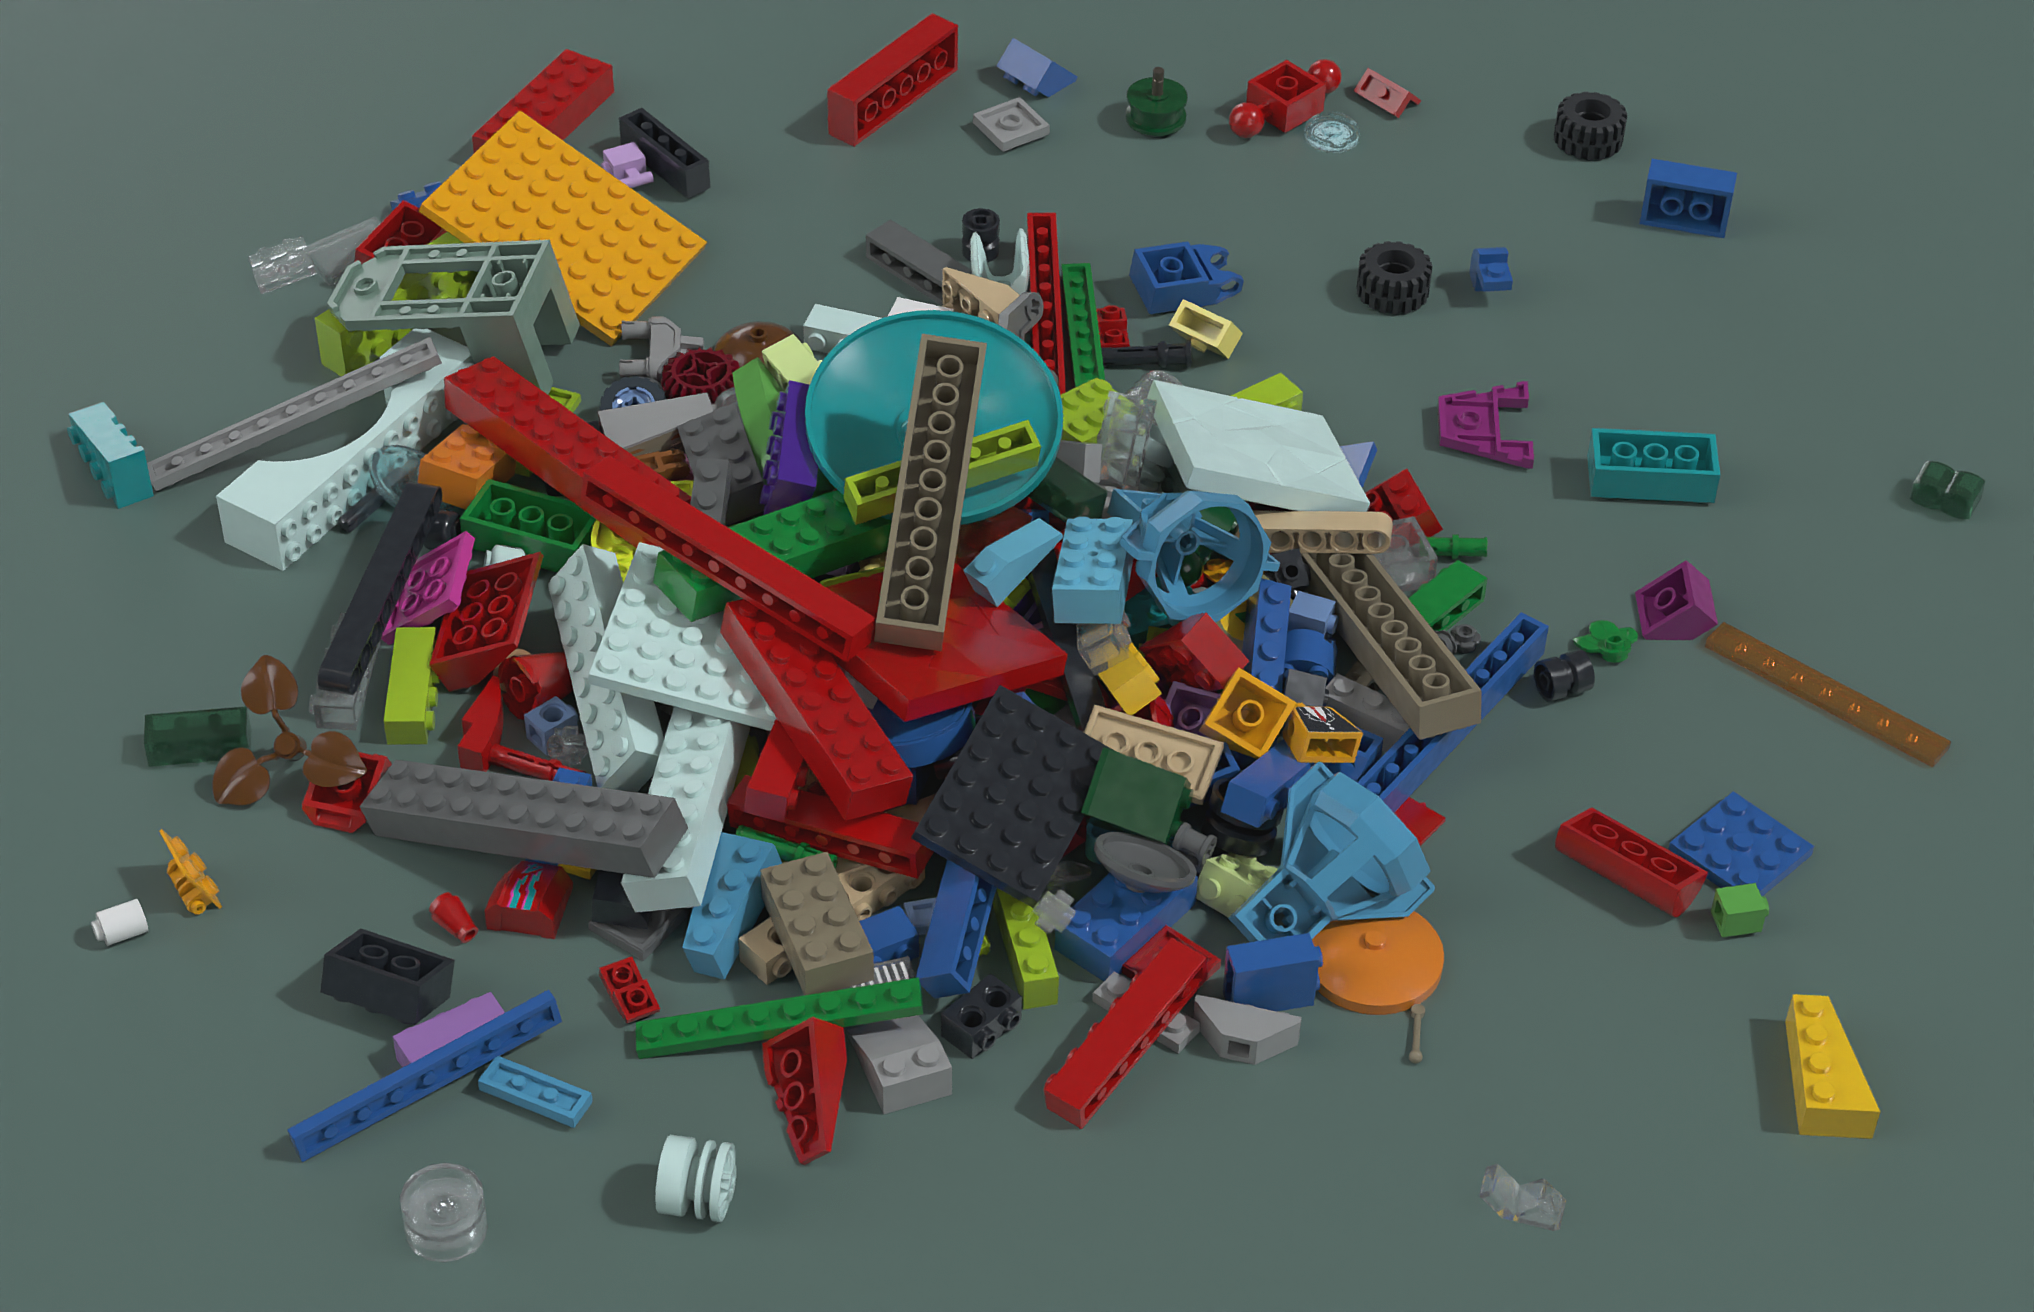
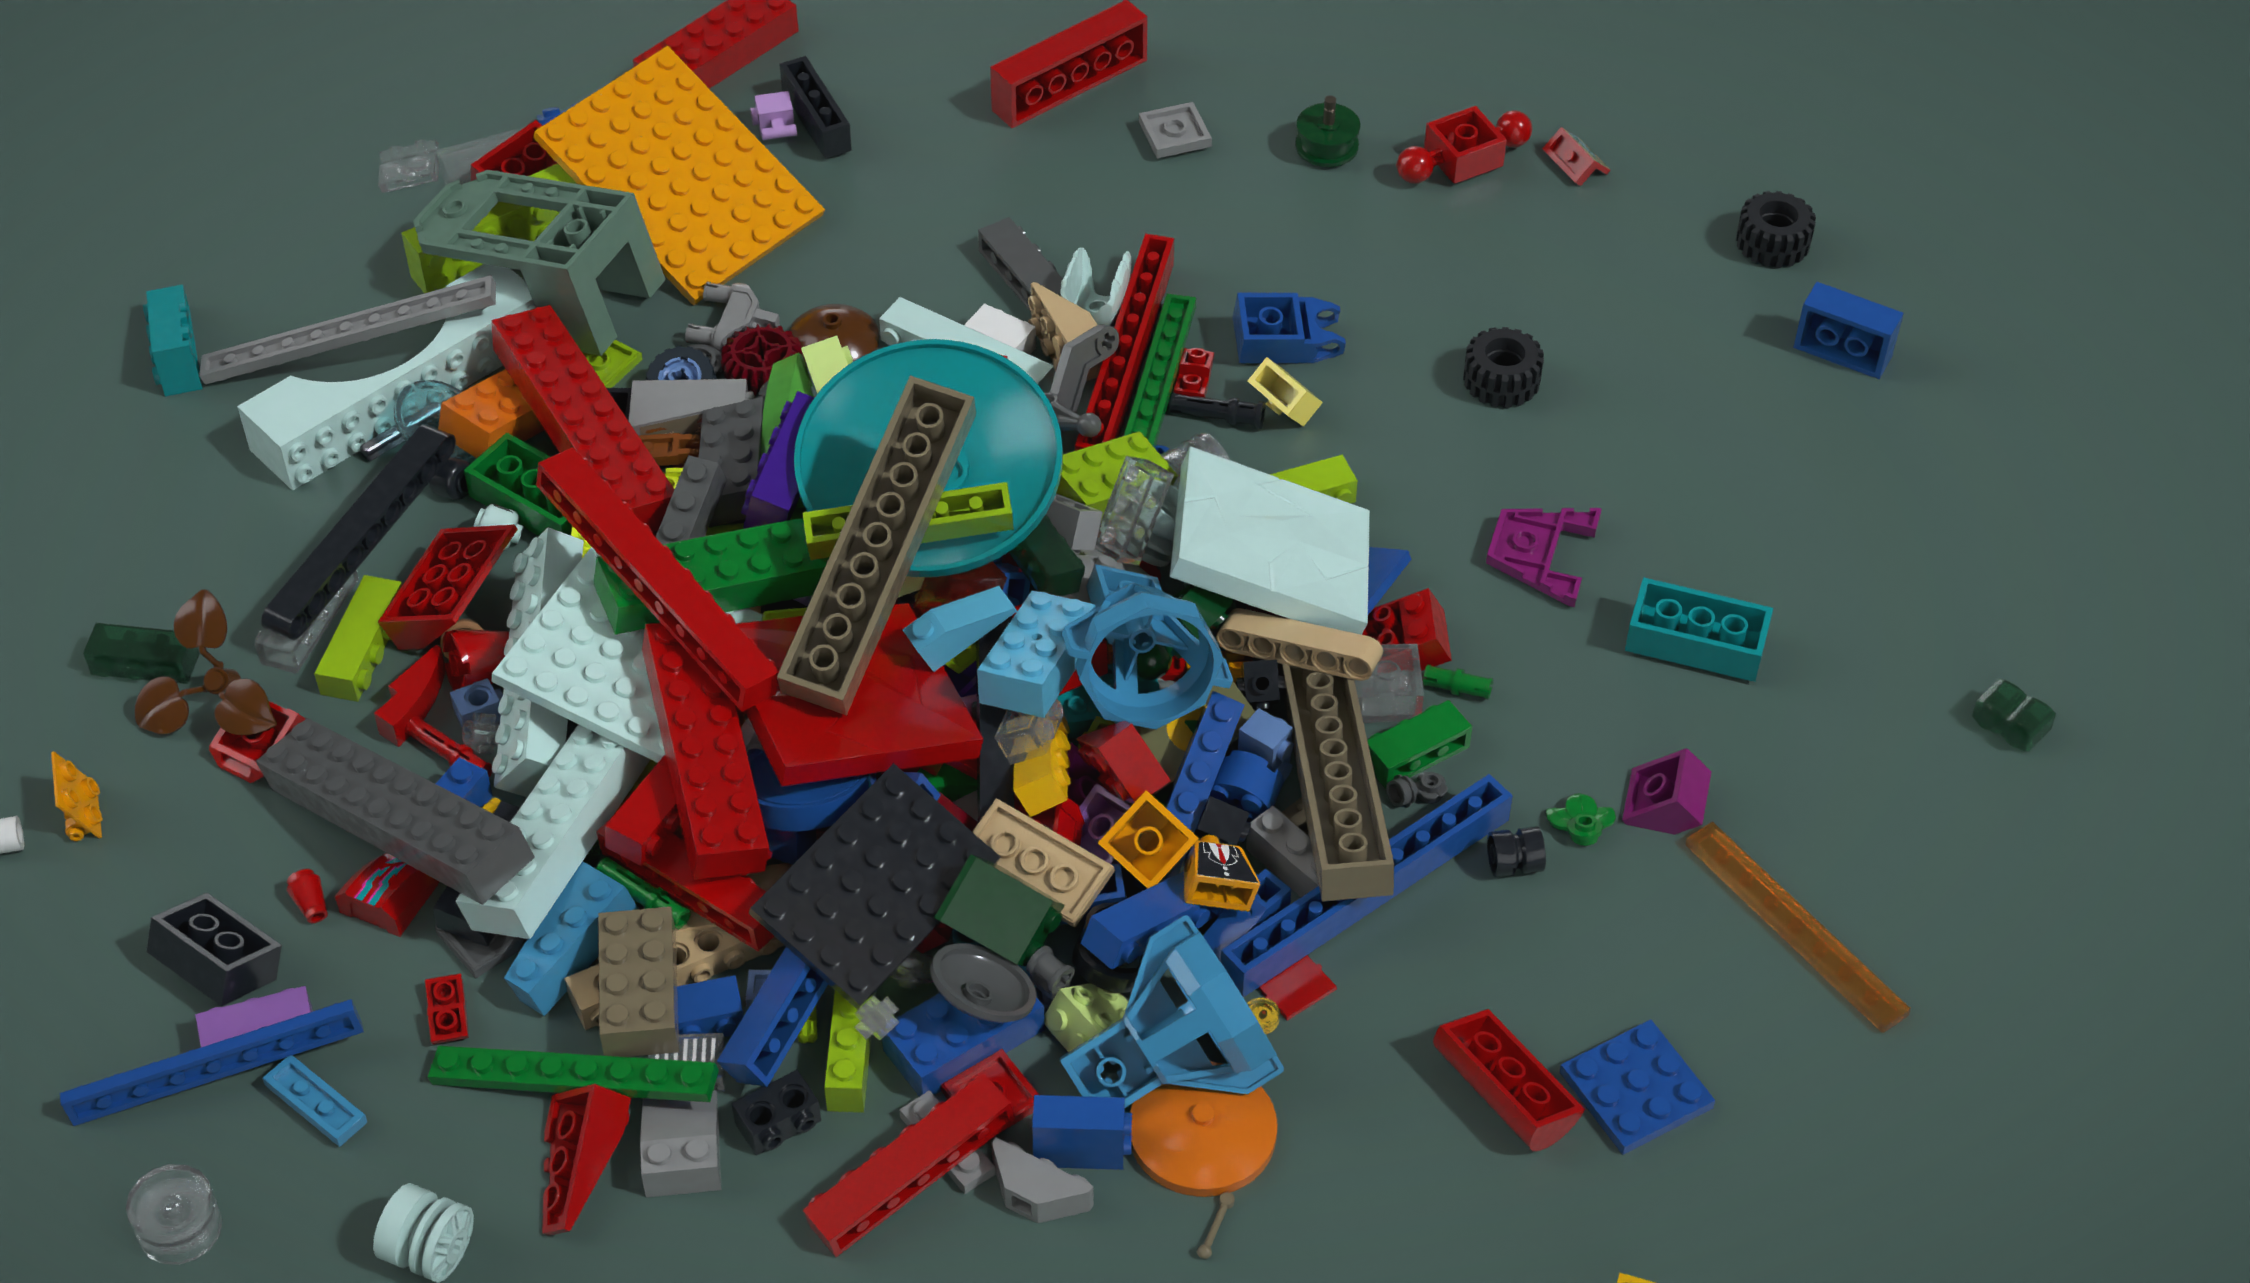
camera: 15 degrees right, 5 degrees up
(432, 586) = (411, 537): dark pink plate -> none
(987, 226) = (1099, 243): black wheel -> none
(1034, 70) = (1220, 74): slope -> none
(1332, 132) = (1503, 191): clear light blue tile -> none
(1490, 269) = (1607, 376): blue brick -> none
(1739, 910) = (1604, 1159): bright green brick -> none

